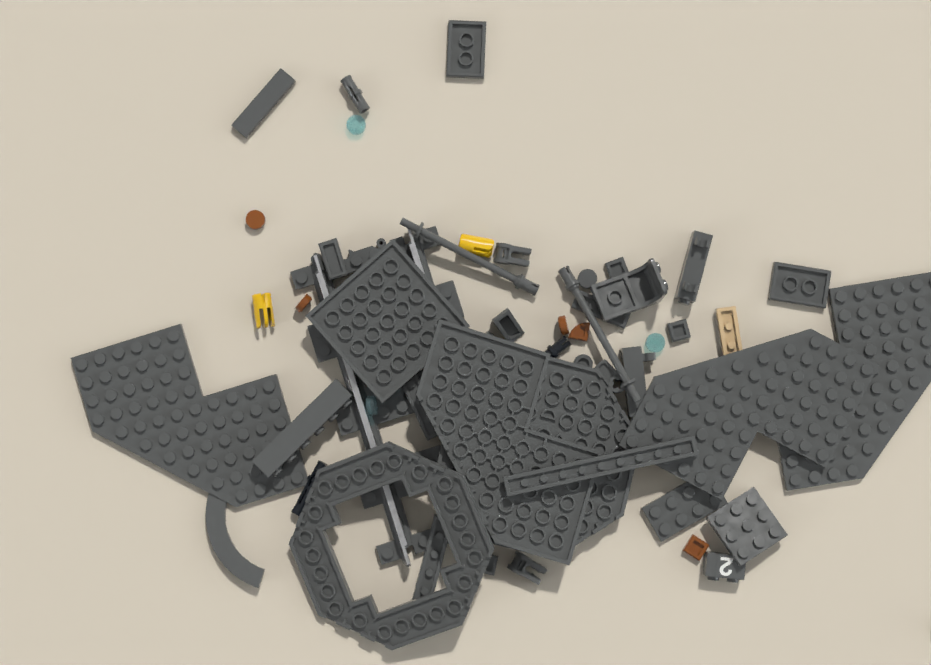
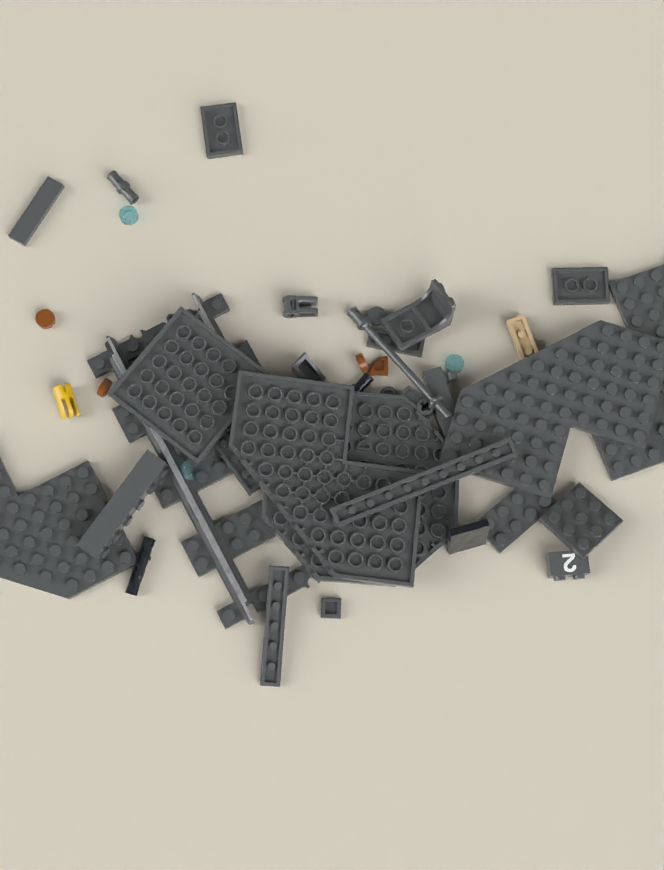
camera: 15 degrees left, 10 degrees down
(225, 547) = (62, 641): dark grey tile -> none
(333, 259) = (126, 340): dark grey tile -> none
(457, 516) = (296, 564): dark grey plate -> none
(477, 245) = (263, 304): yellow arm -> none
(519, 281) = (310, 329): dark grey bar -> none
(519, 566) = (367, 607): dark grey piece -> none
(616, 267) = (402, 300): dark grey tile -> none
(632, 524) = (468, 536): none -> tile
(678, 330) = (474, 348): dark grey tile -> none
(693, 267) = (475, 286): dark grey brick -> none
(695, 547) = (535, 553): dark orange tile -> none

